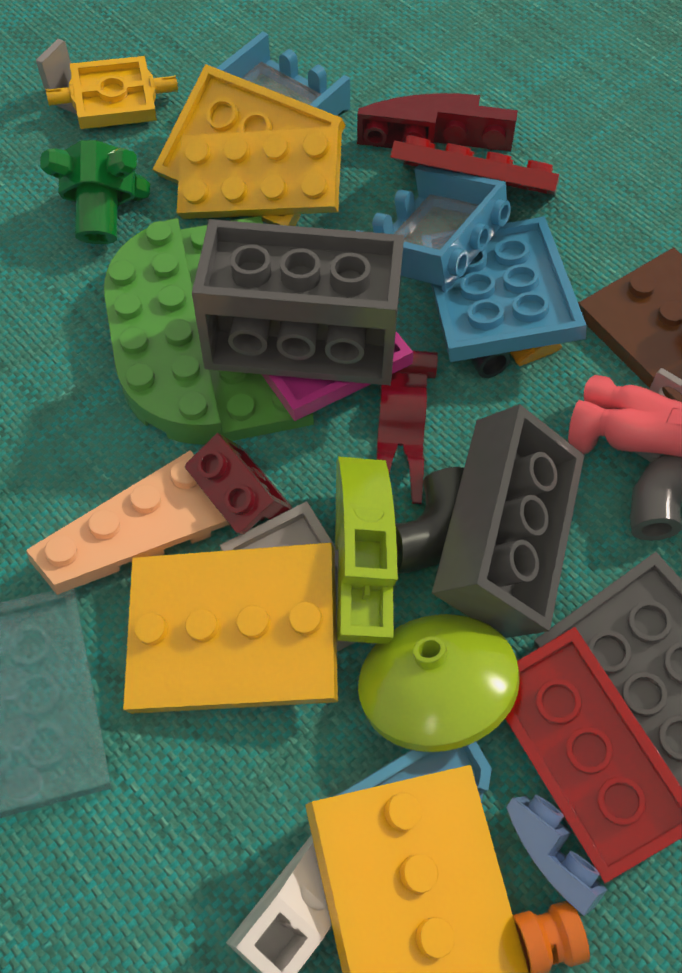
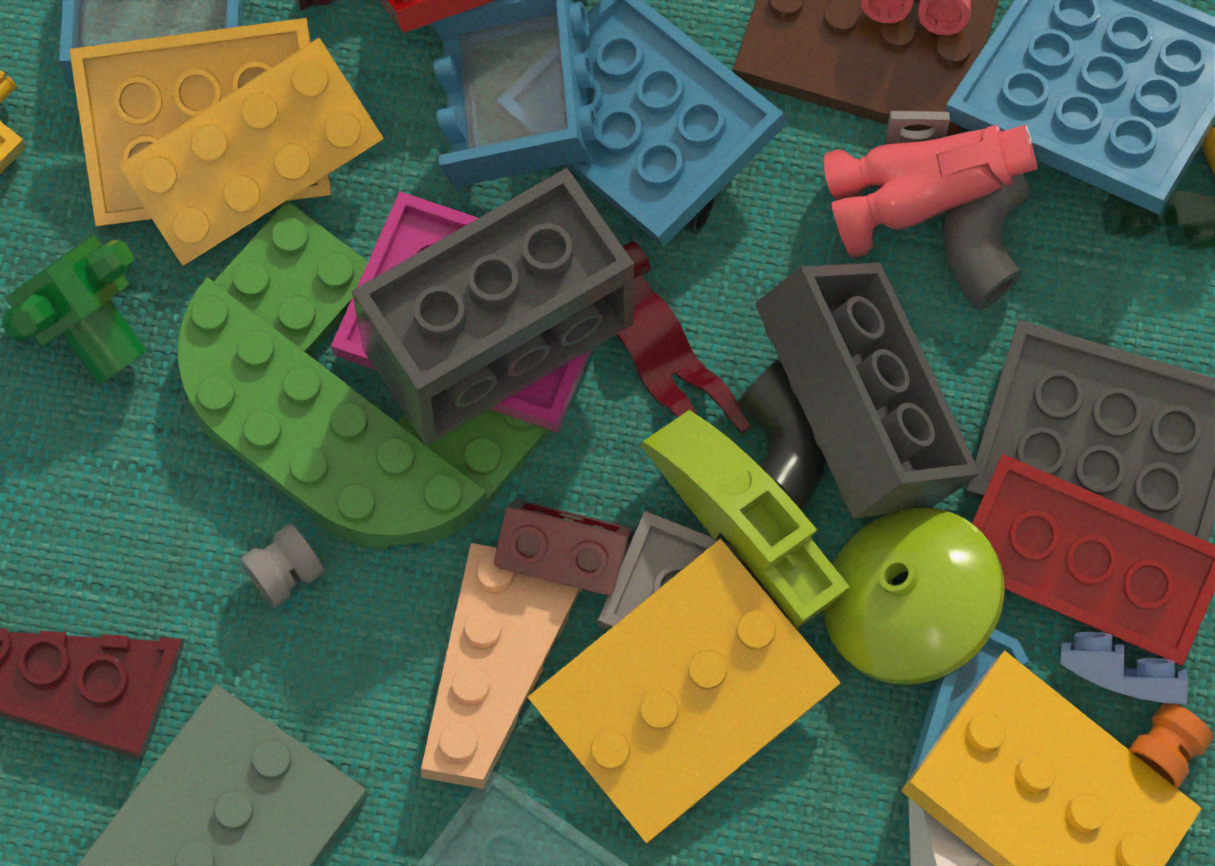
camera: 40 degrees left, 10 degrees up
(73, 387) = (282, 565): none -> light grey wheel

